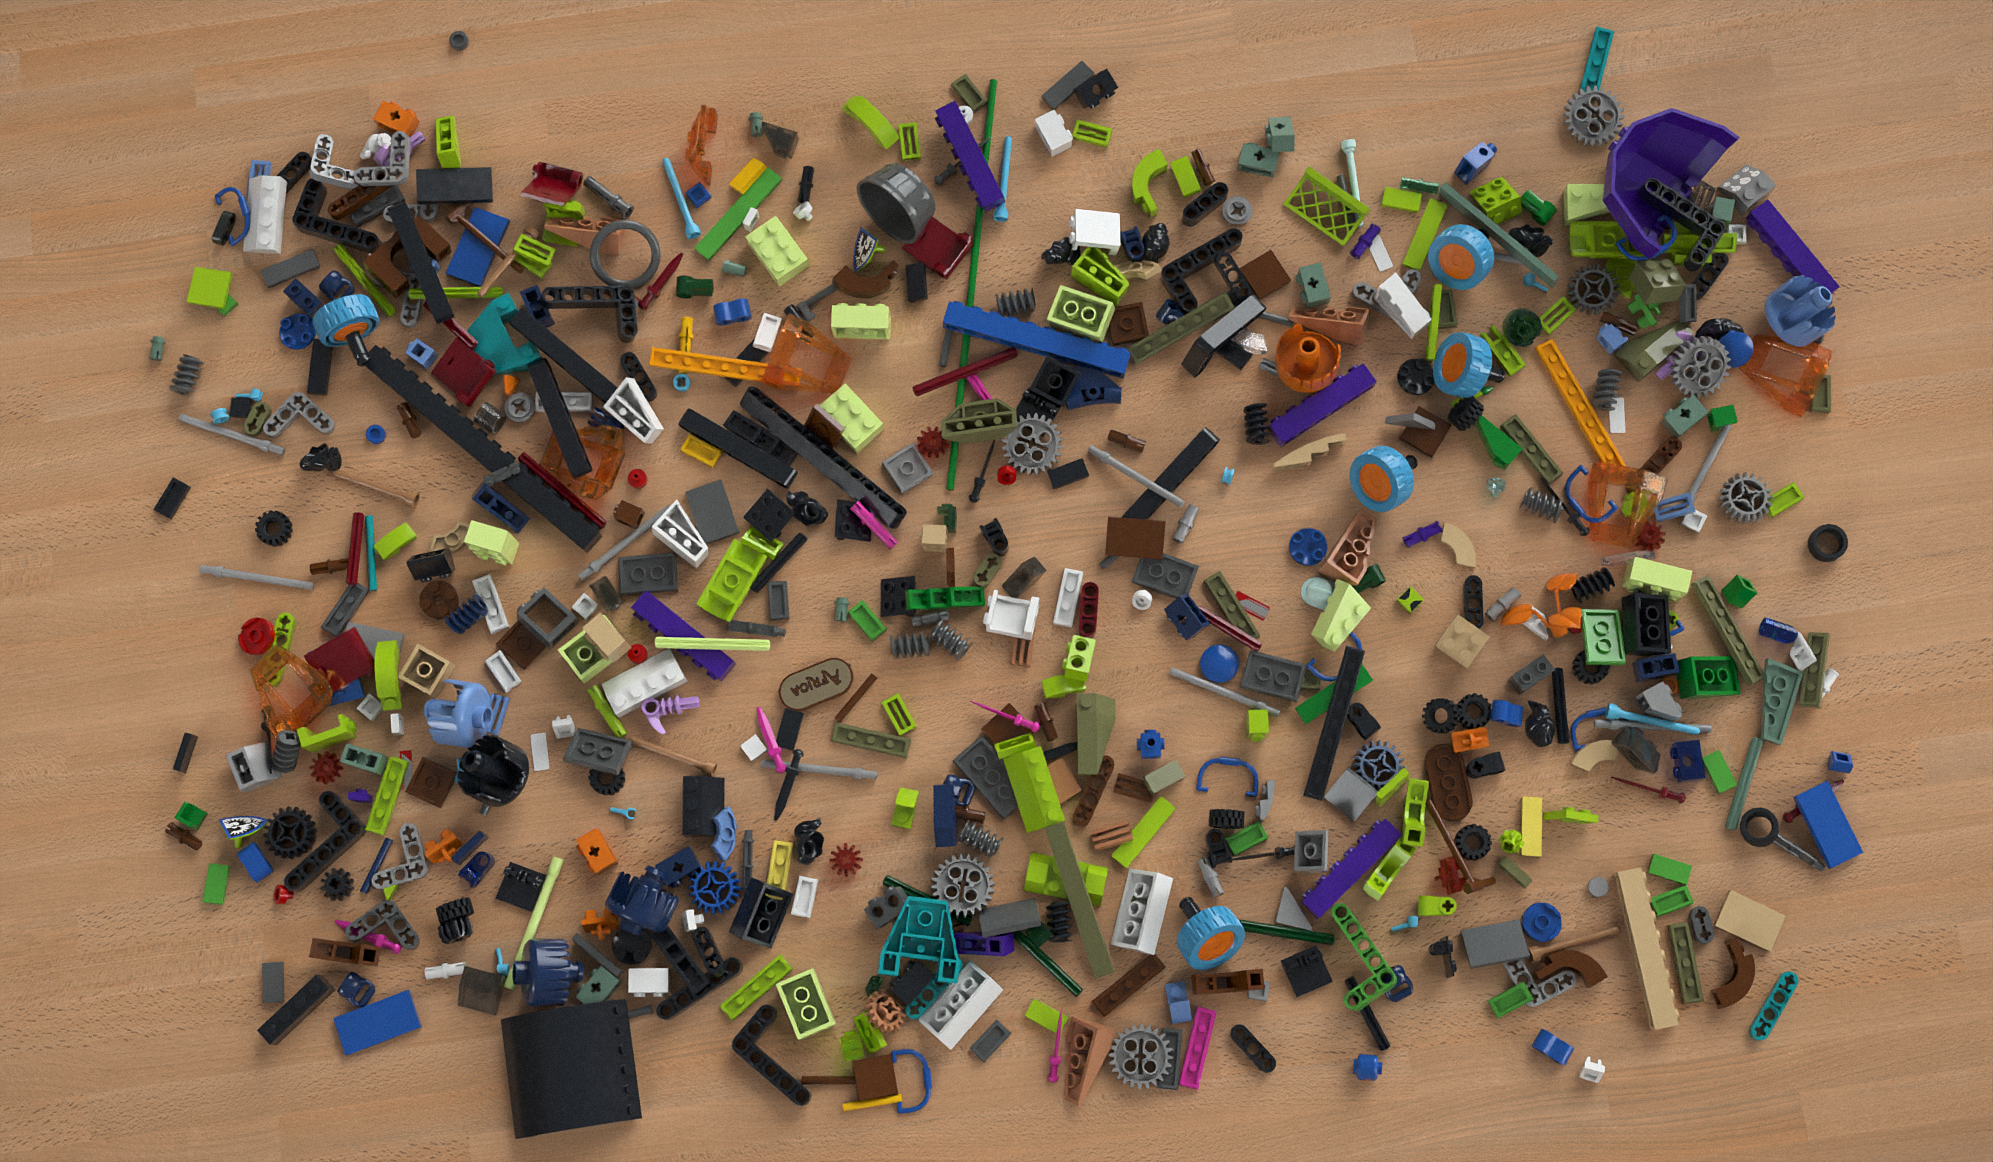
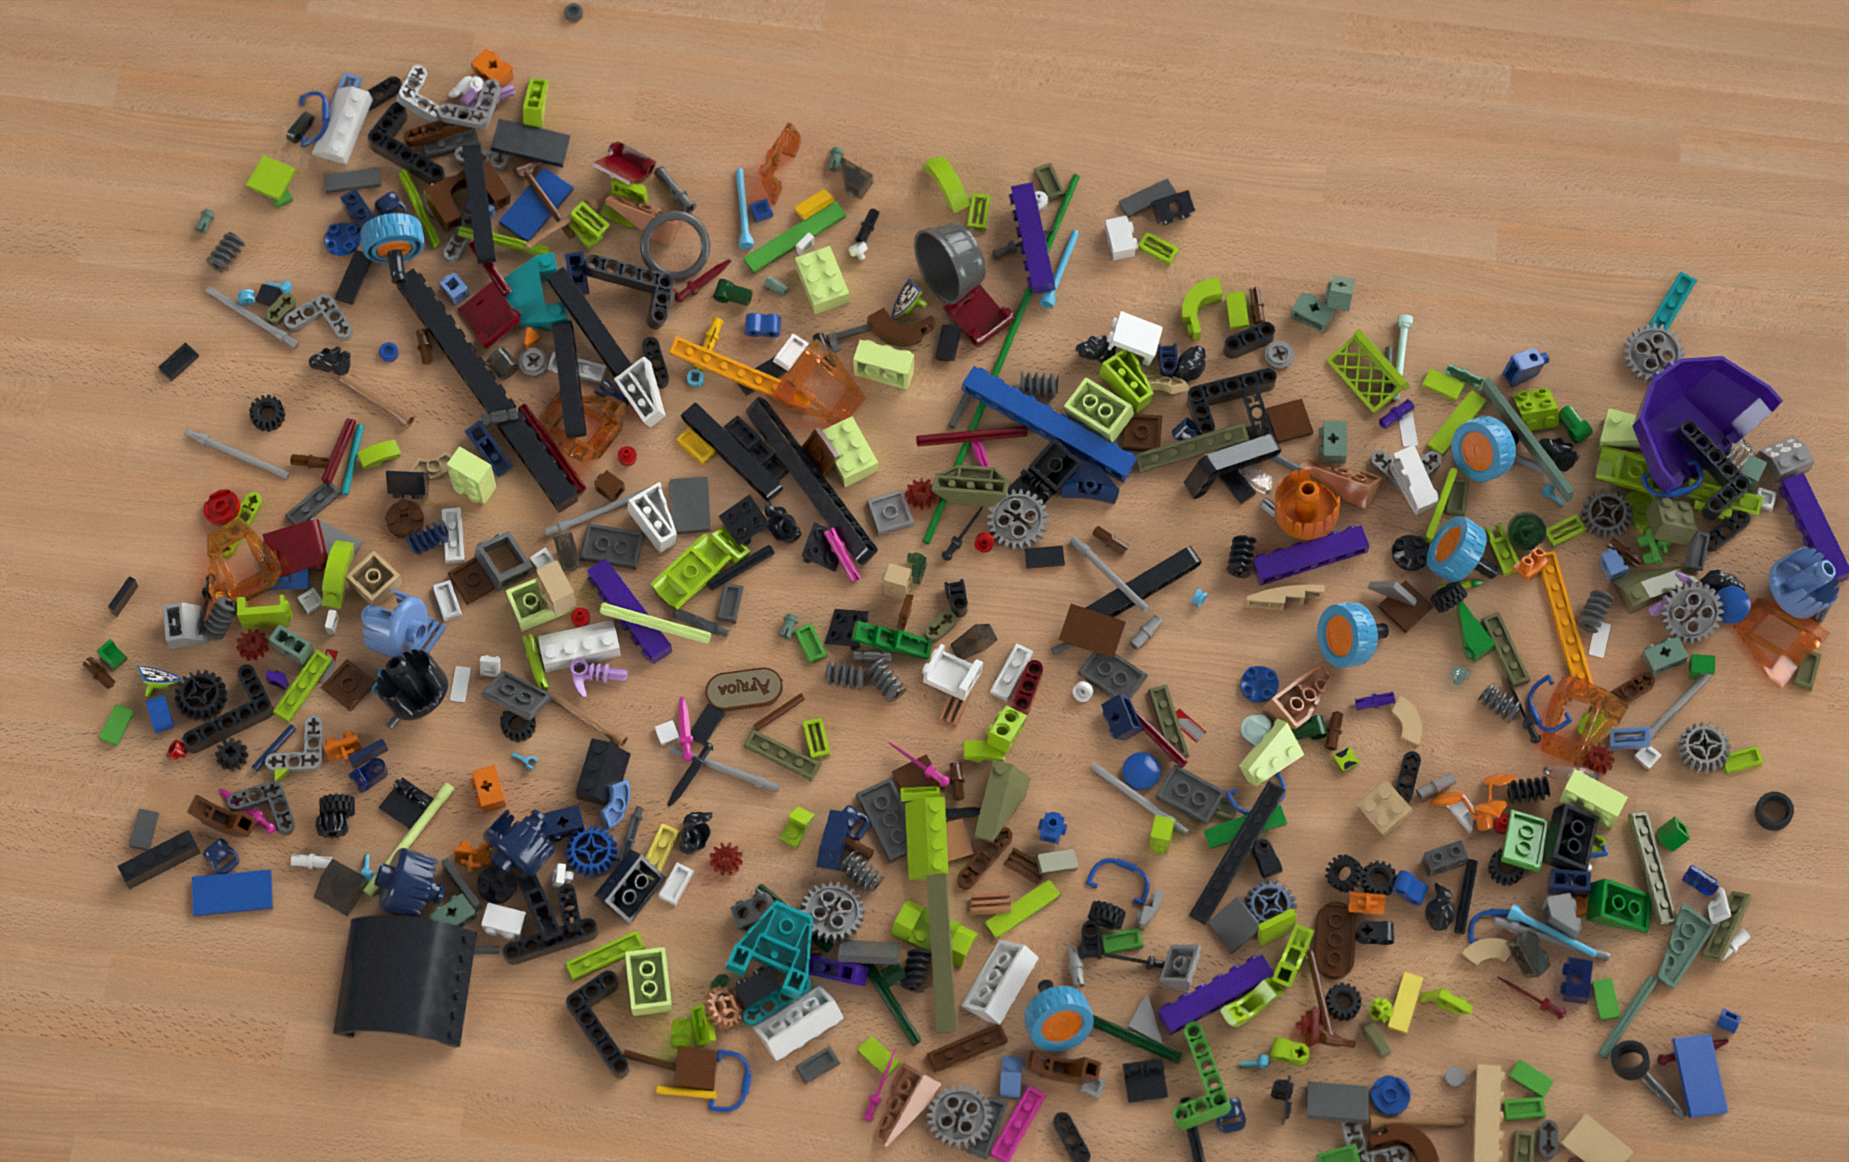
camera: 10 degrees right, 10 degrees down
(1391, 574) = (1334, 730): none -> reddish brown axle
(1535, 359) = (1531, 564): none -> orange hips

